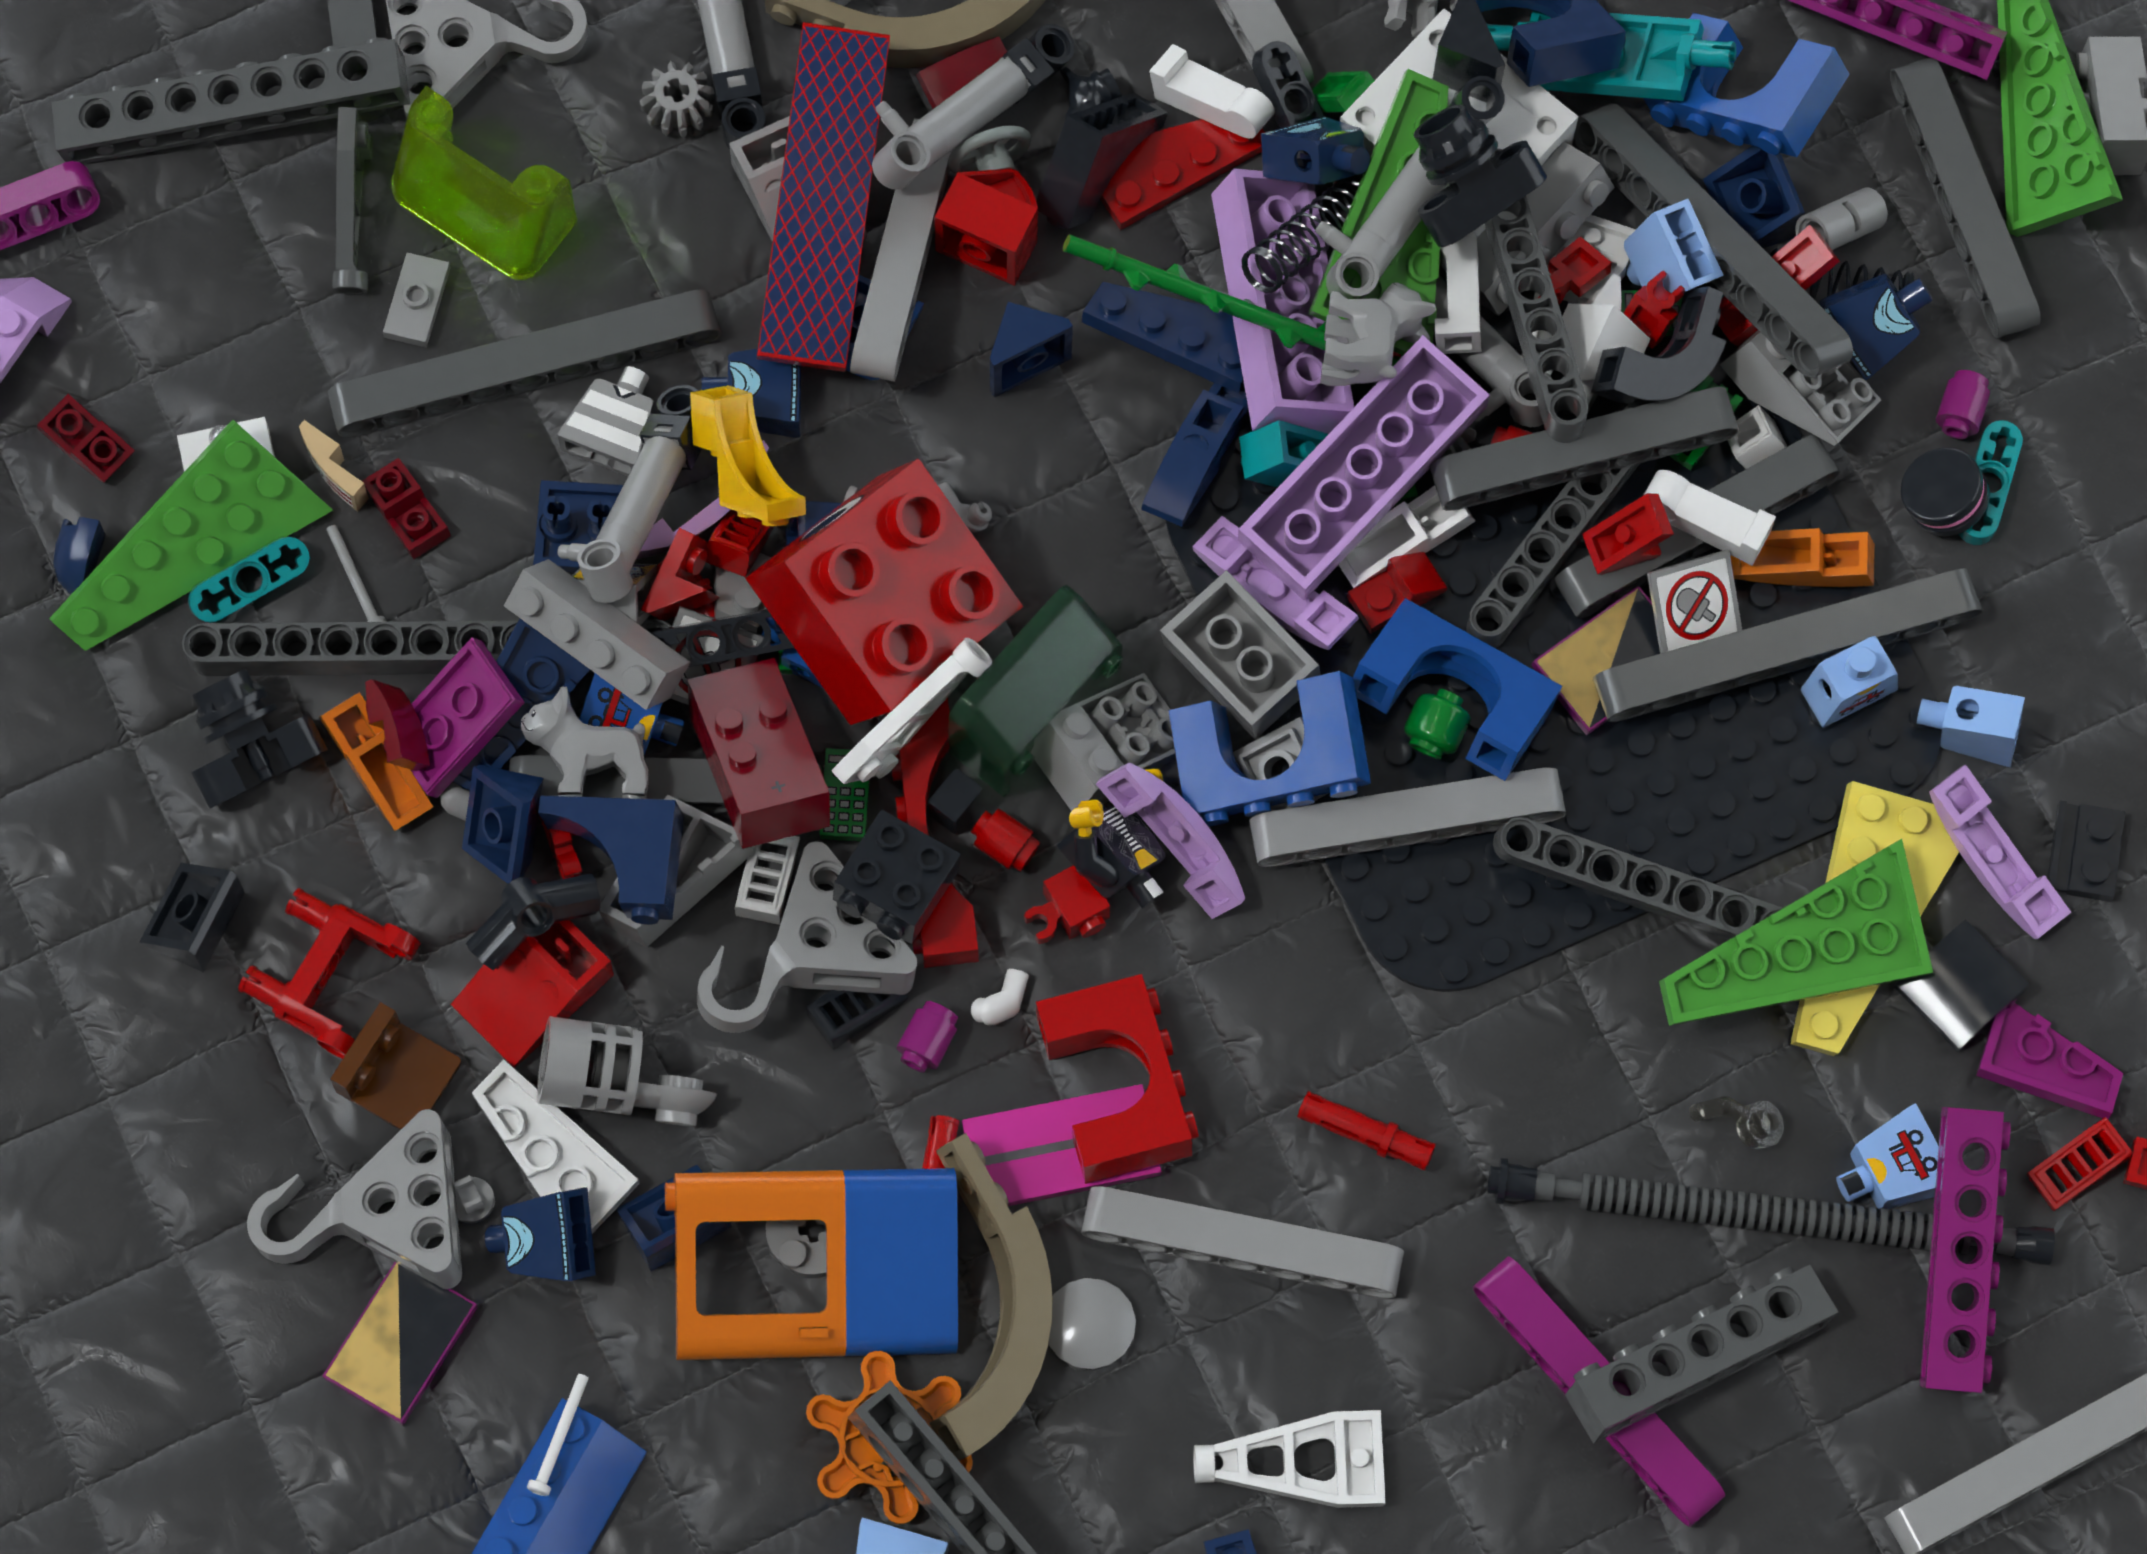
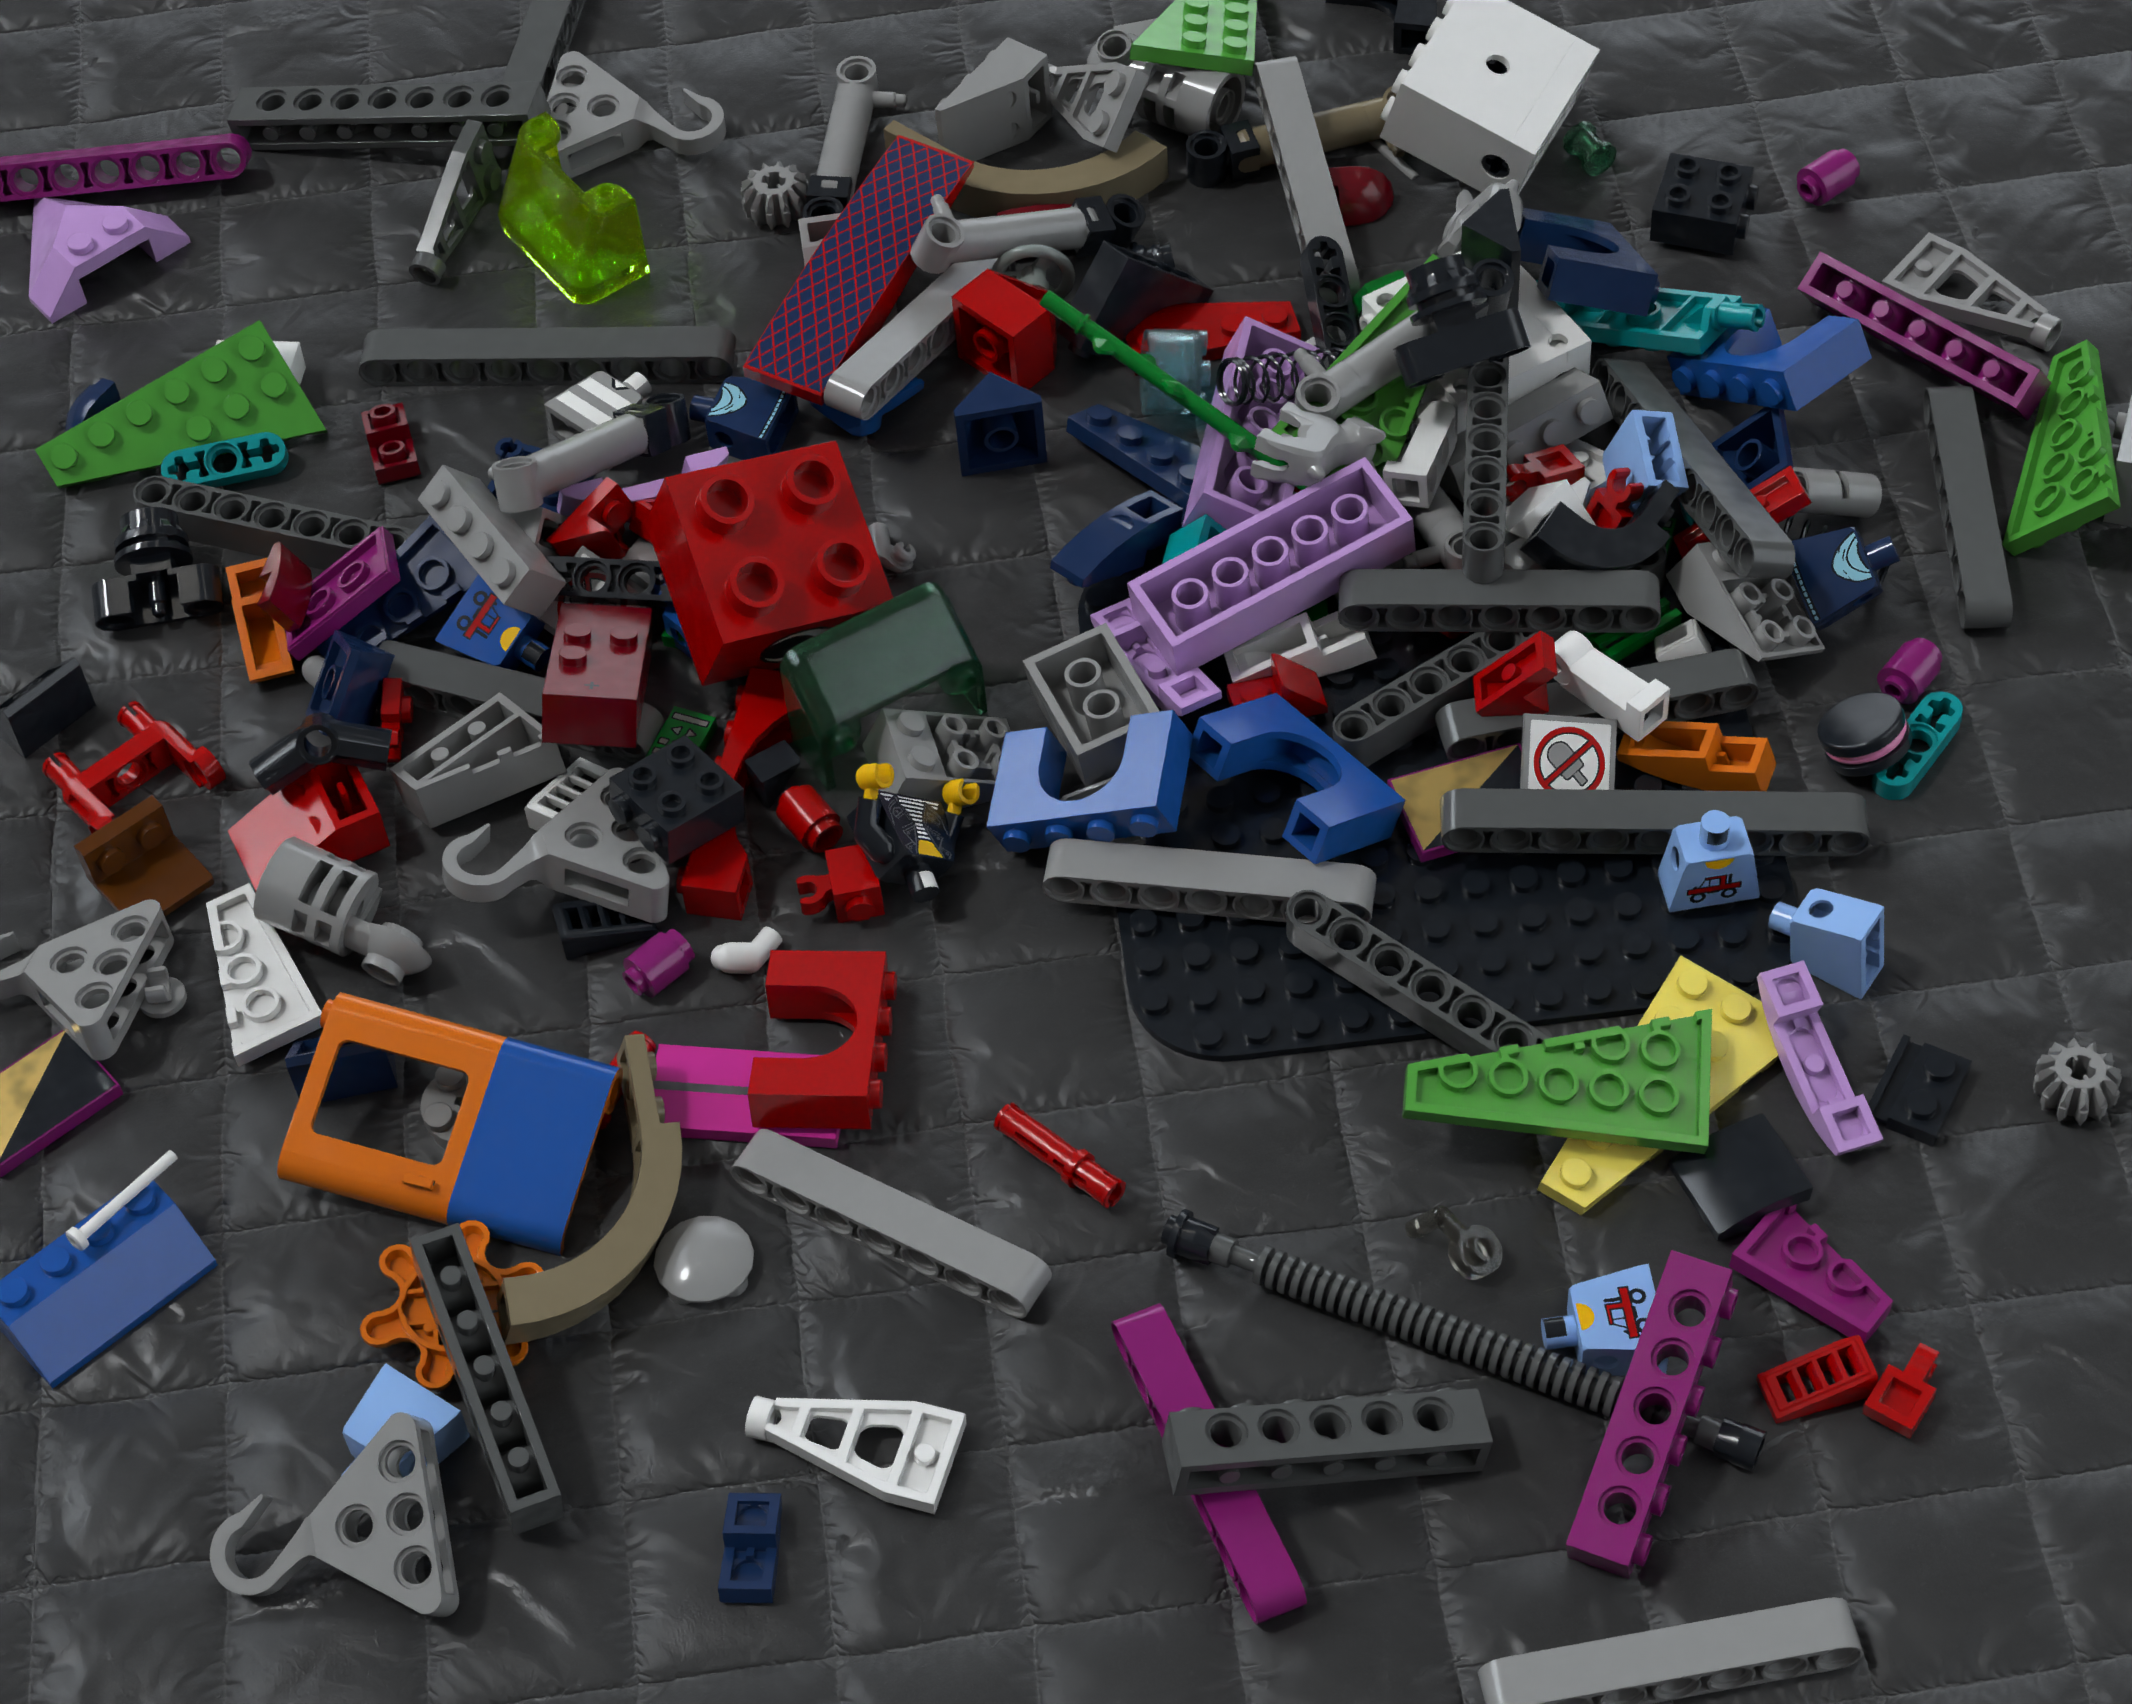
camera: 25 degrees right, 20 degrees down
(85, 439) = (143, 334): dark red slope -> none
(327, 458) = (341, 394): tan slope -> none
(353, 575) = (319, 476): light grey piece -> none
(416, 300) = (480, 295): light grey plate -> none
(546, 1236) = (210, 1031): dark blue torso -> none
(586, 749) = (442, 638): light grey animal -> none
(638, 838) = (448, 713): dark blue arch -> none
(746, 478) = (692, 424): yellow arch -> none
(878, 749) = (709, 706): white plate -> none
(1171, 230) = (1180, 356): none -> clear light blue brick
(1182, 831) = (975, 834): lavender slope -> none
(1209, 94) = (1252, 277): white leg -> none
(1332, 149) = (1335, 319): dark blue torso -> none
(1437, 724) = (1266, 808): green head -> none

